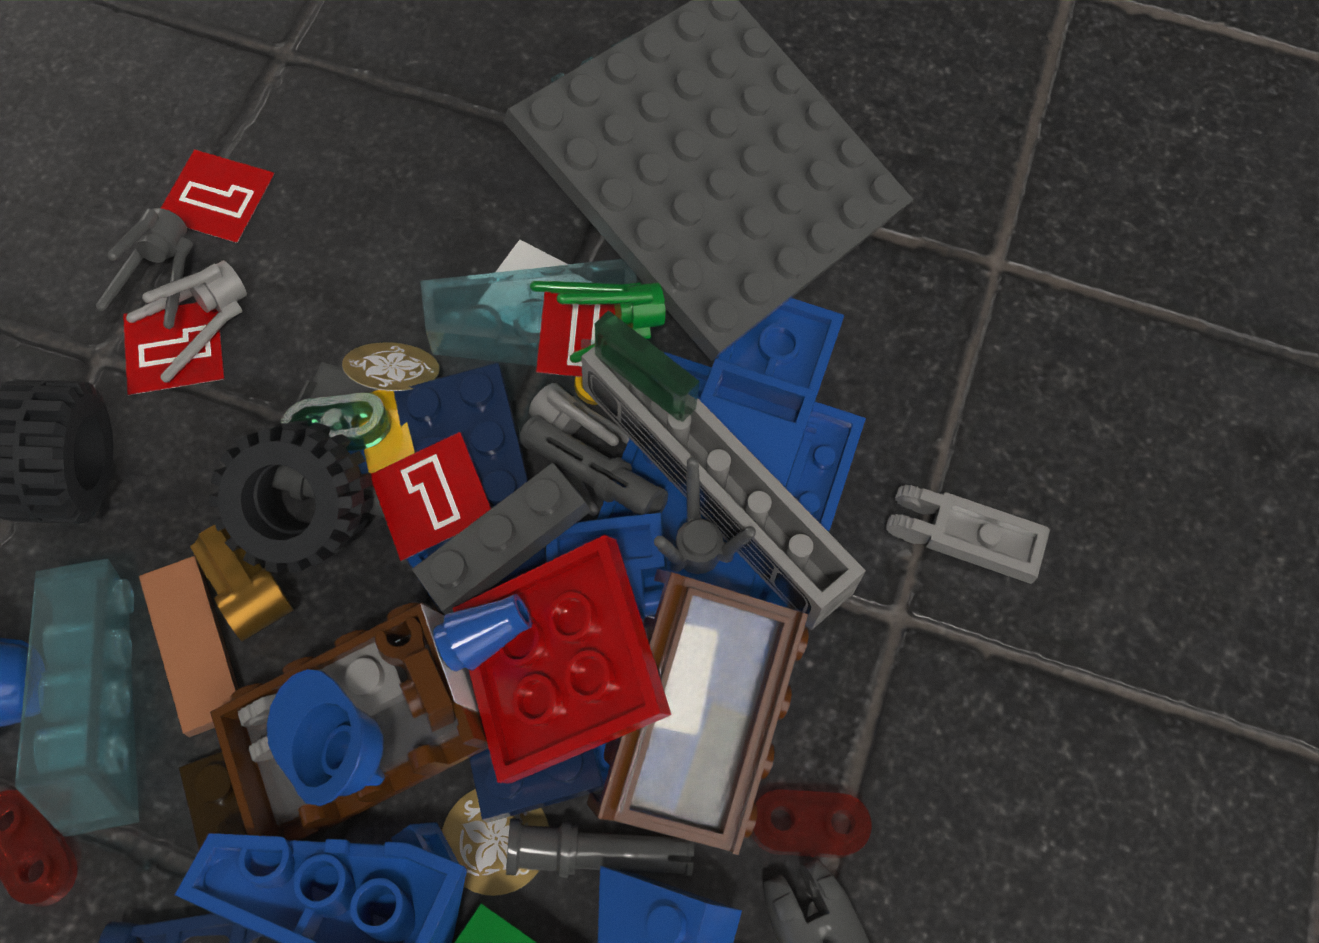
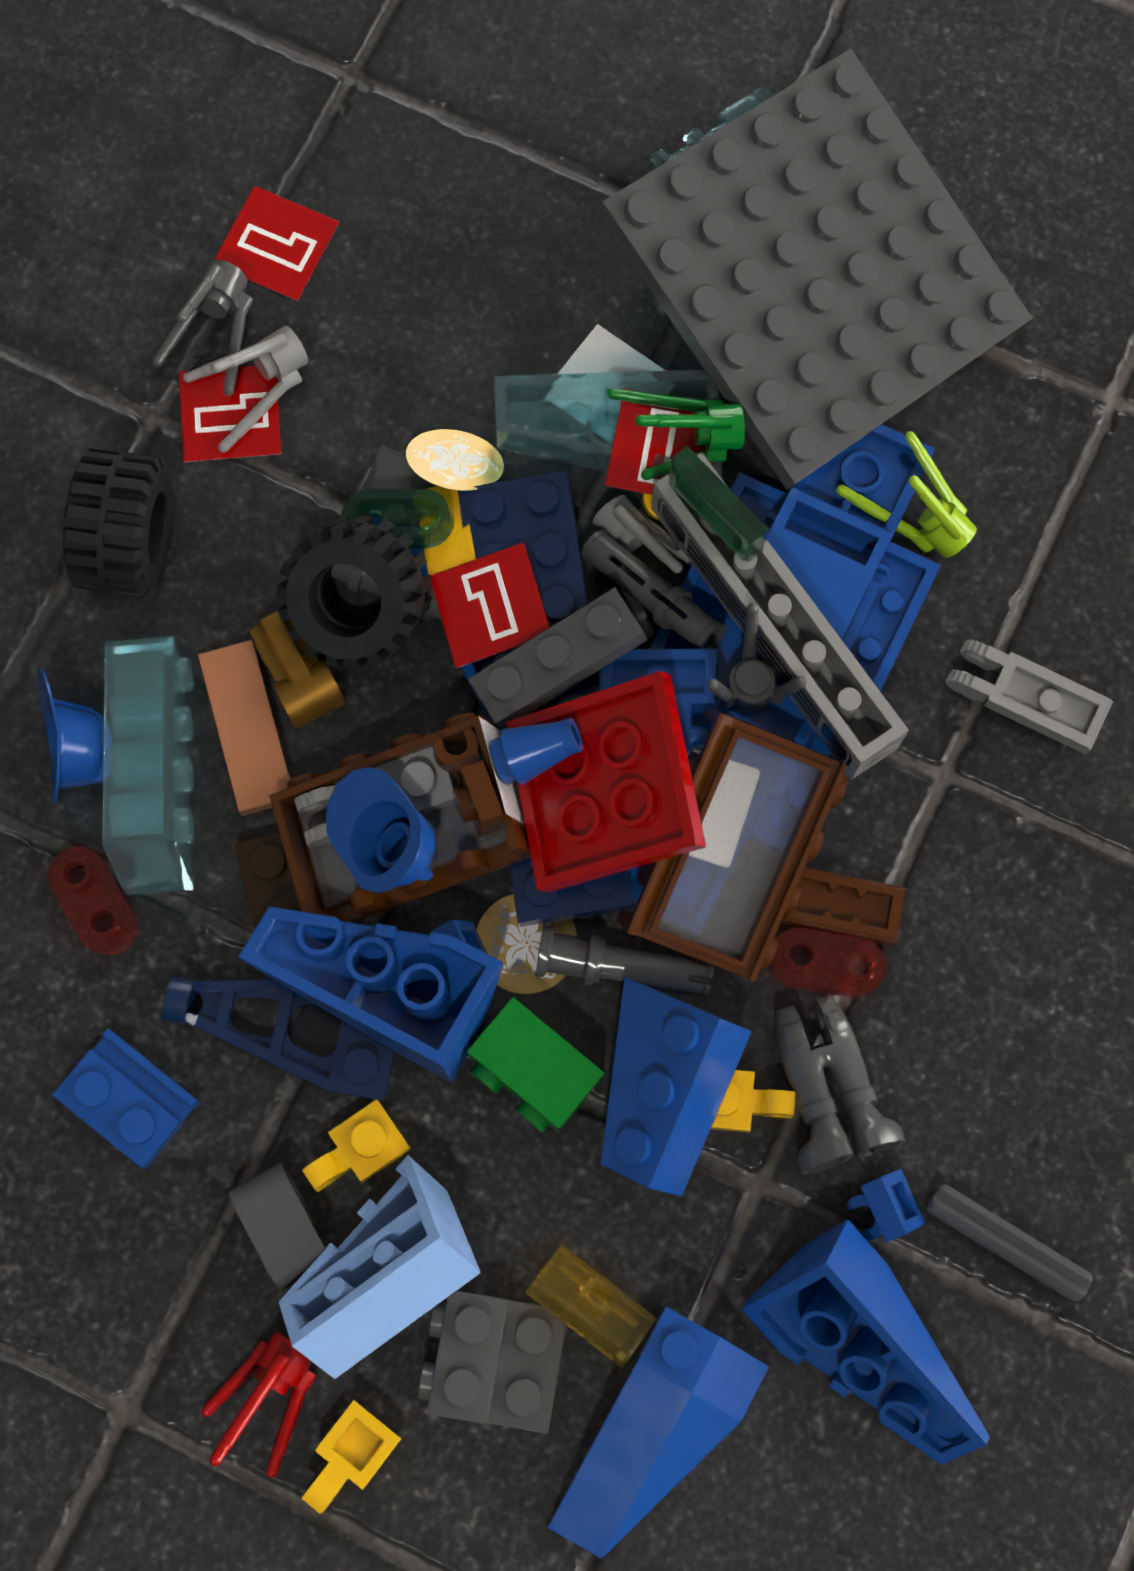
camera: 10 degrees right, 10 degrees up
(824, 762) = (848, 906): none -> reddish brown plate
(861, 380) = (942, 522): none -> lime plant

